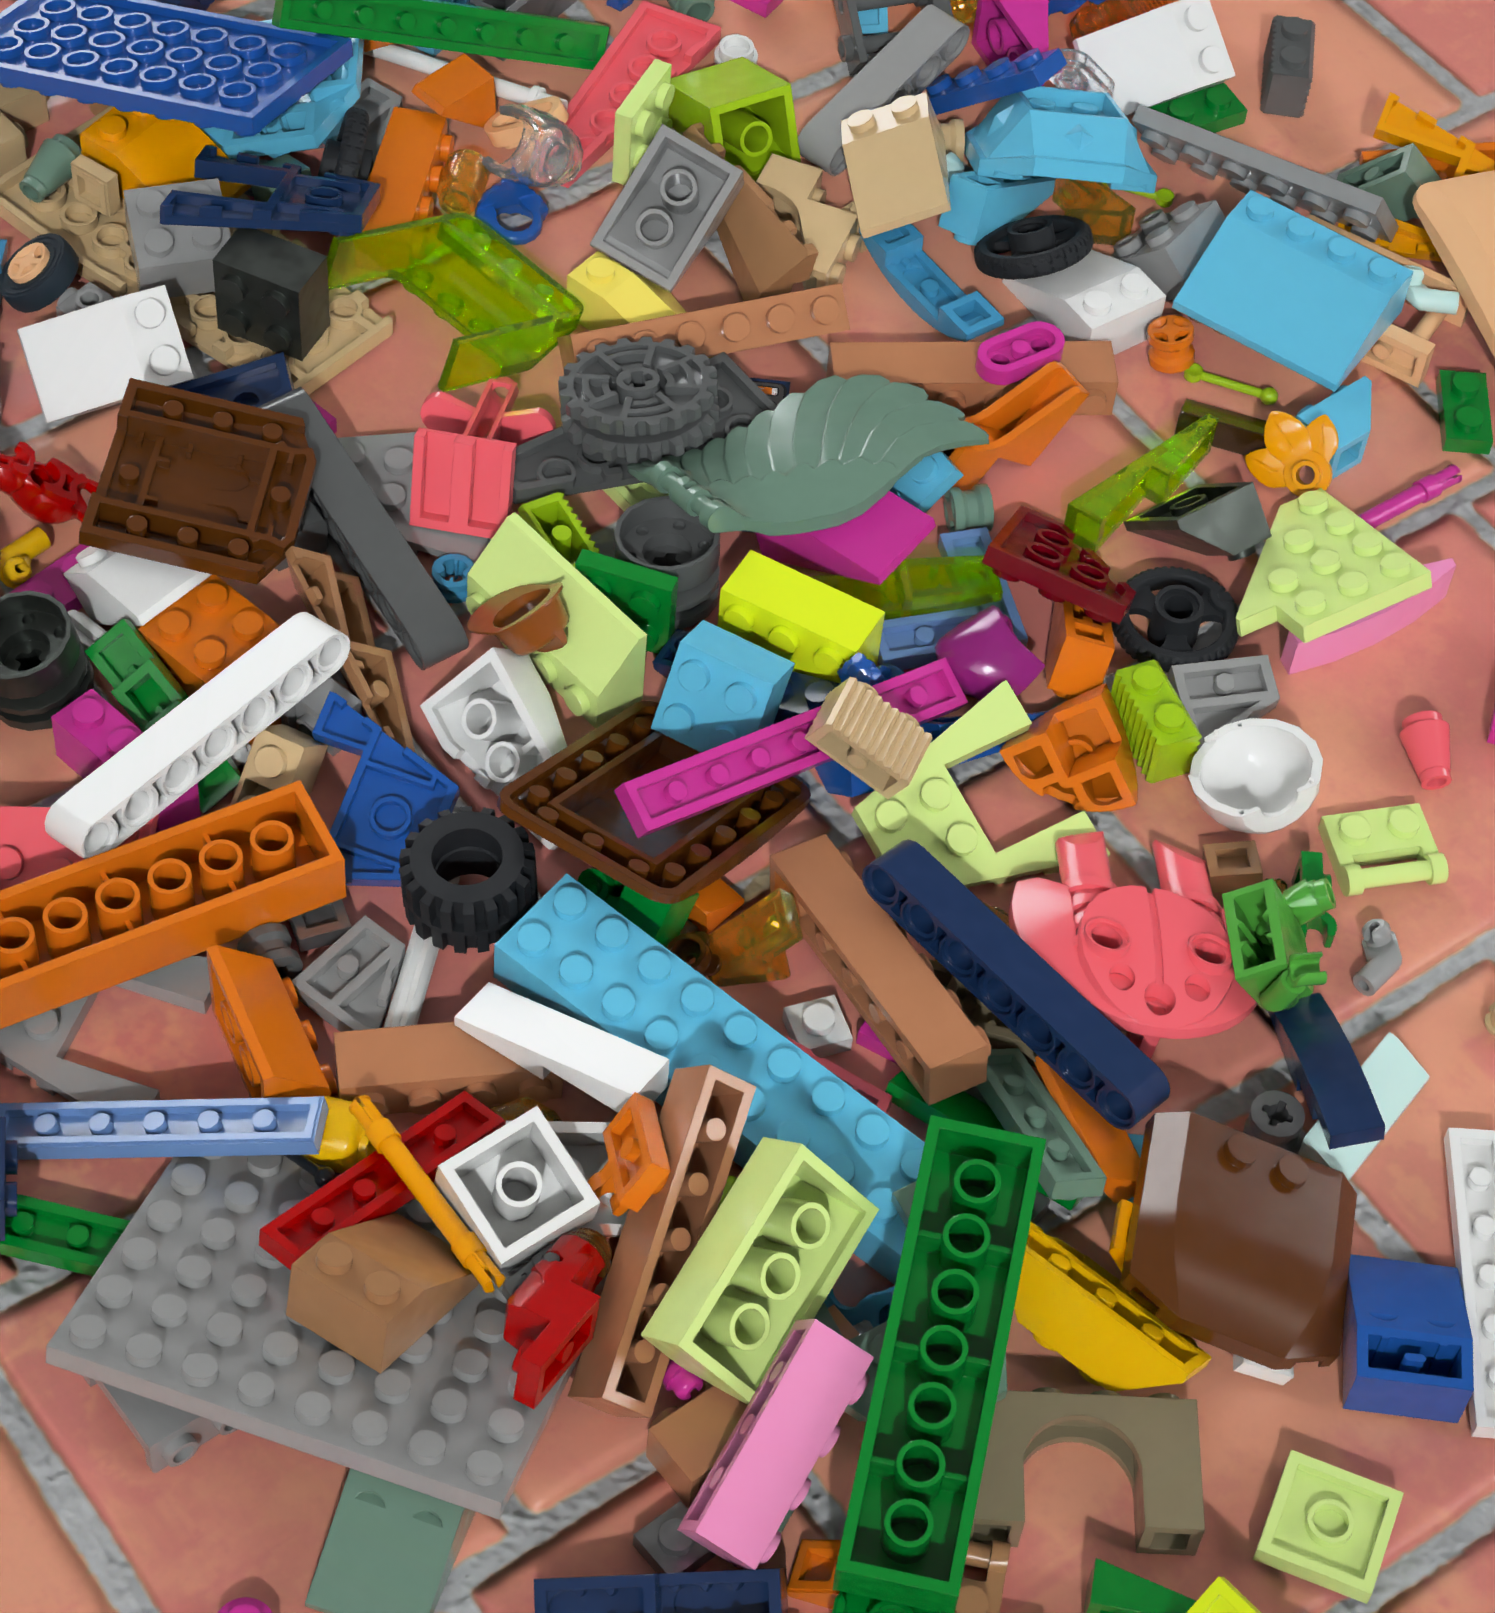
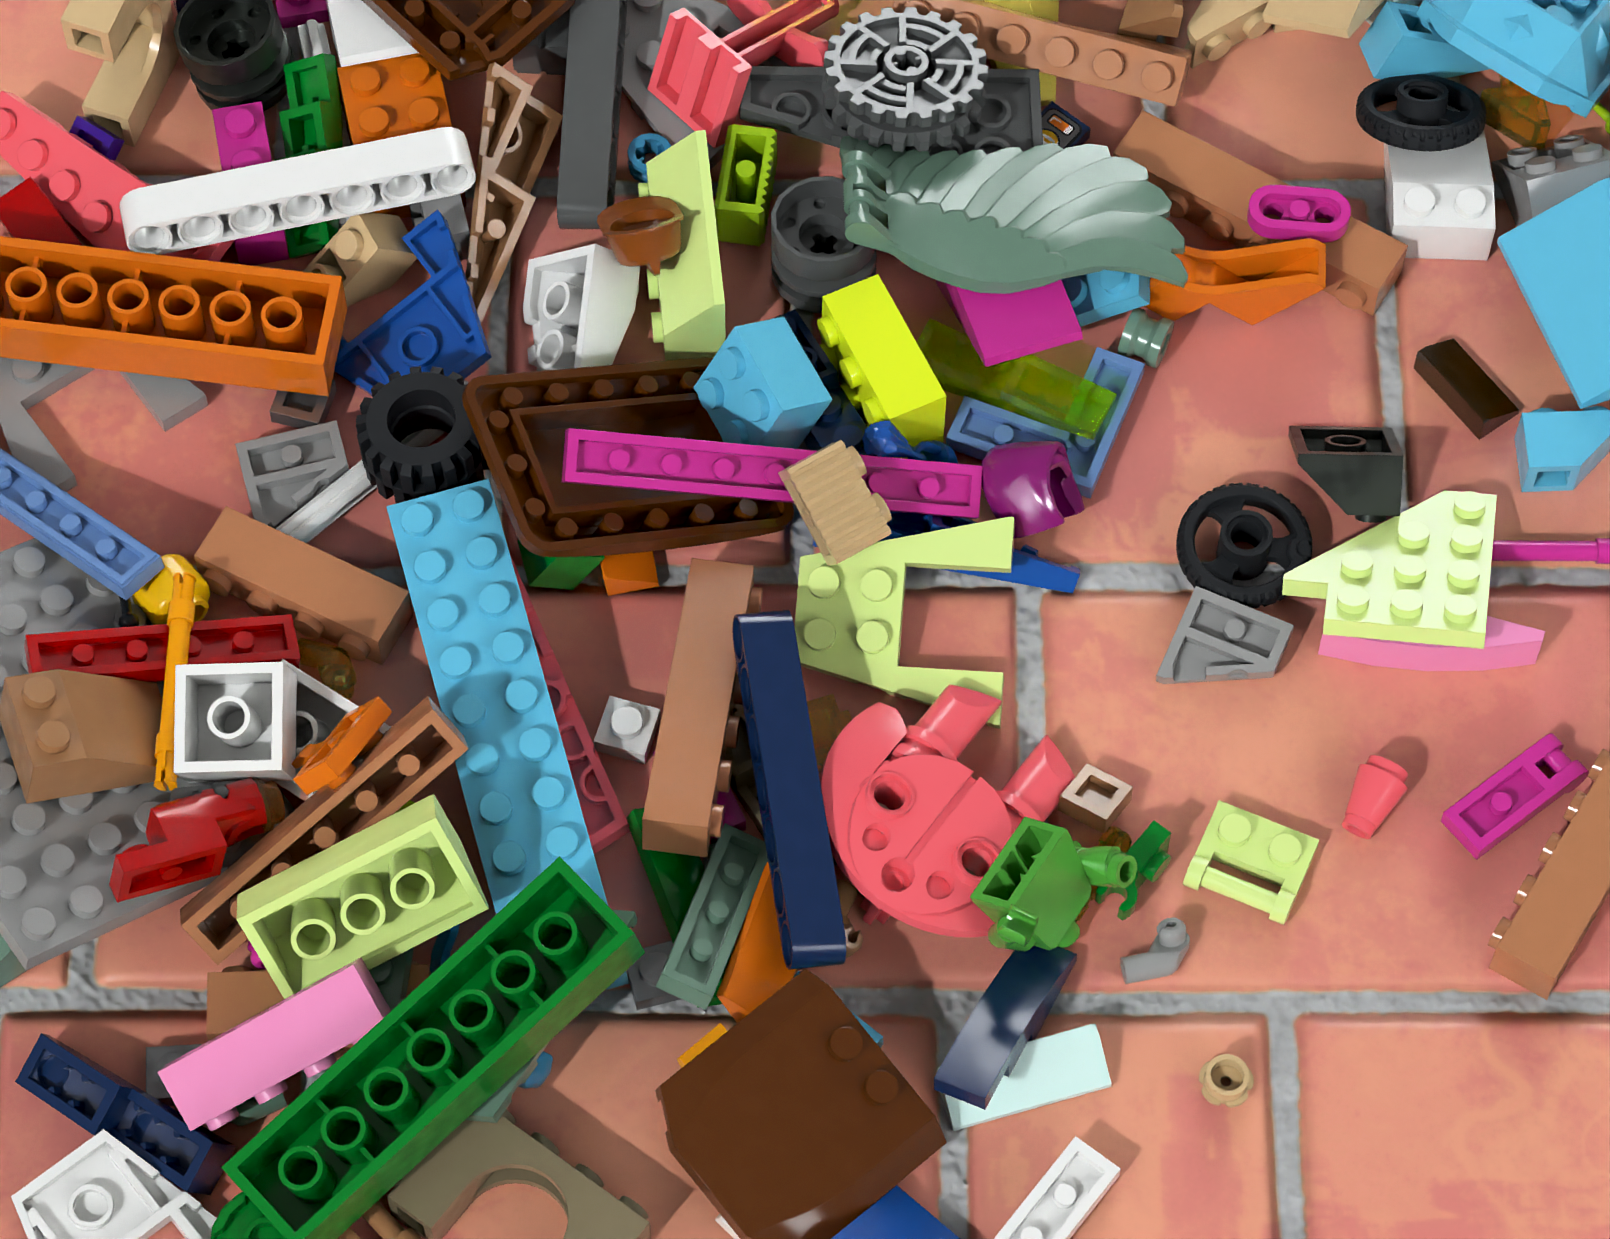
camera: 40 degrees right, 10 degrees up
(263, 1029) = (178, 473): orange slope -> none
(273, 942) = (238, 412): dark grey wheel -> none
(557, 1043) = (377, 624): white slope -> none
(637, 591) = (755, 260): green plate -> none
(696, 946) = (568, 609): reddish brown plate -> none
(757, 942) = (627, 628): clear yellow slope -> none
(928, 288) = (1300, 102): dark azure slope -> none
(1044, 556) = (1164, 432): dark red plate -> none
(1077, 651) = (1140, 512): orange slope -> none
(1077, 754) = (1045, 618): orange brick -> none
(1096, 1322) = (615, 1070): yellow wedge -> none
(1152, 476) = (1353, 397): clear neon green slope -> none
(1155, 721) = (1137, 627): lime brick -> none
(1171, 344) = (1477, 277): orange wheel -> none
(1195, 373) = (1485, 317): lime hinge -> none
(1256, 774) = (1174, 728): white cylinder -> none
(1287, 1119) = (925, 1052): flat silver wheel -> none
(1290, 448) = (1494, 445): light orange plate -> none

